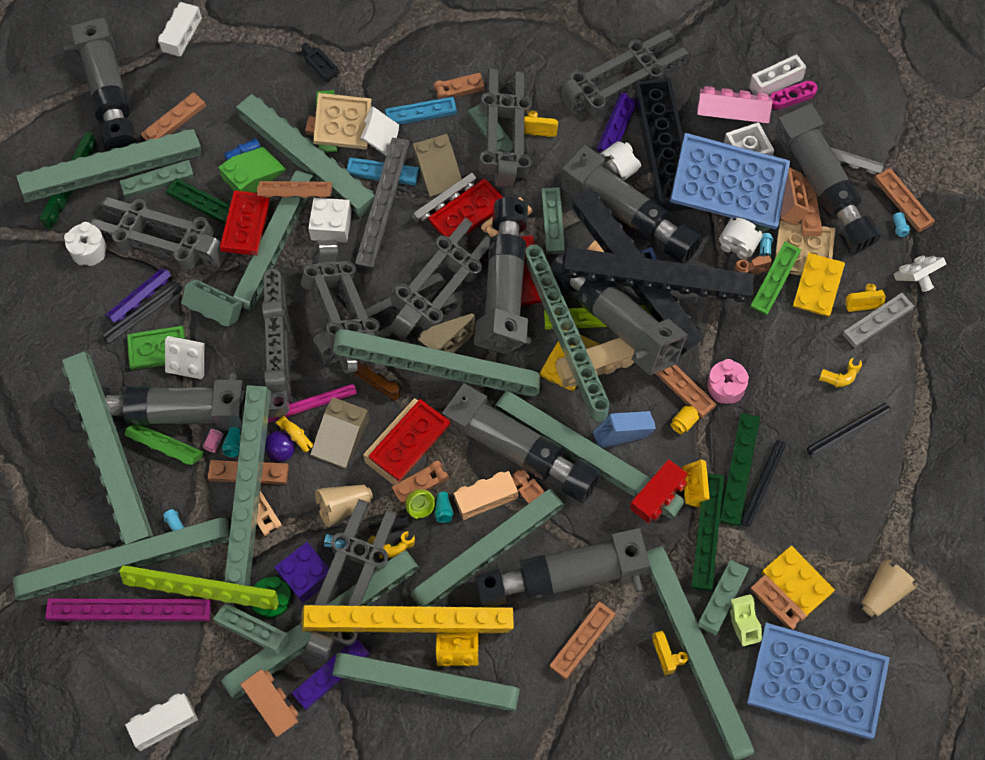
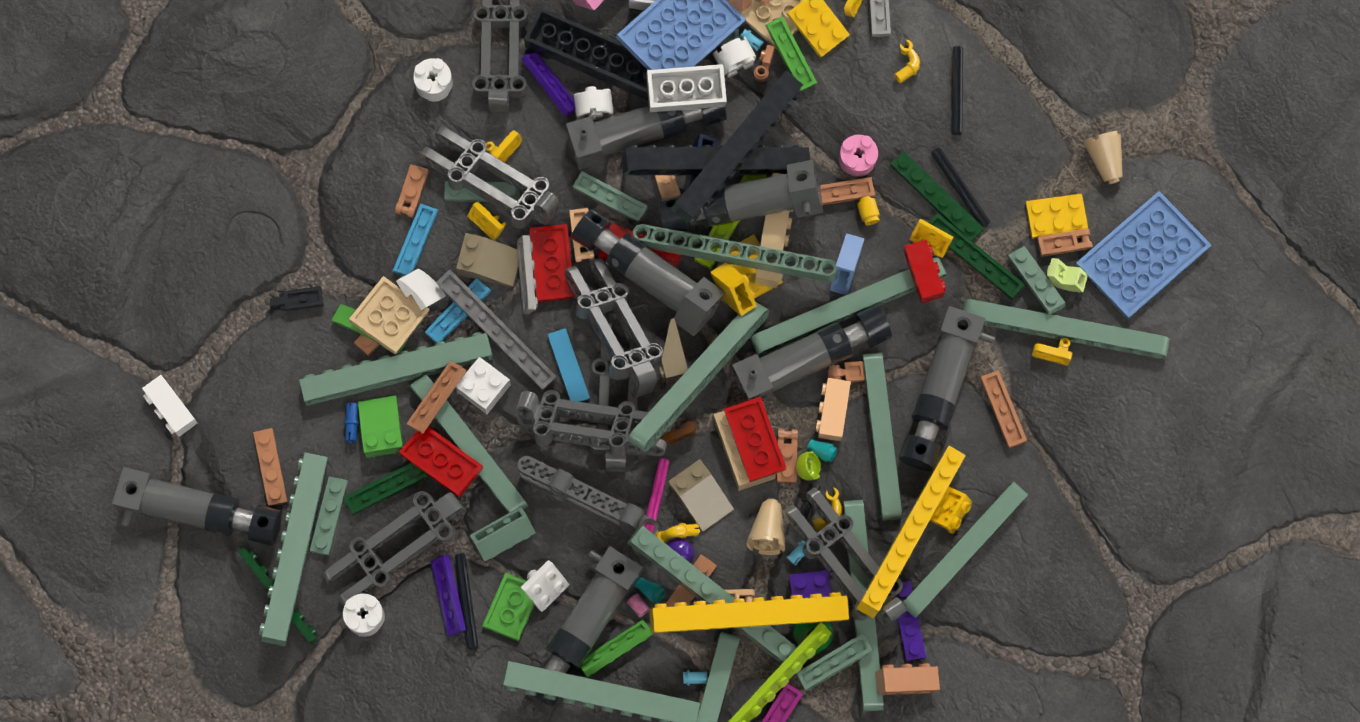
camera: 60 degrees left, 10 degrees up
(243, 523) = (748, 614): none -> yellow brick
(388, 273) = (568, 366): none -> dark azure tile
(470, 142) = (486, 221): none -> yellow plate
(535, 349) = (736, 288): none -> yellow brick
(558, 47) = (436, 70): none -> white brick
(677, 205) = (686, 88): none -> white brick

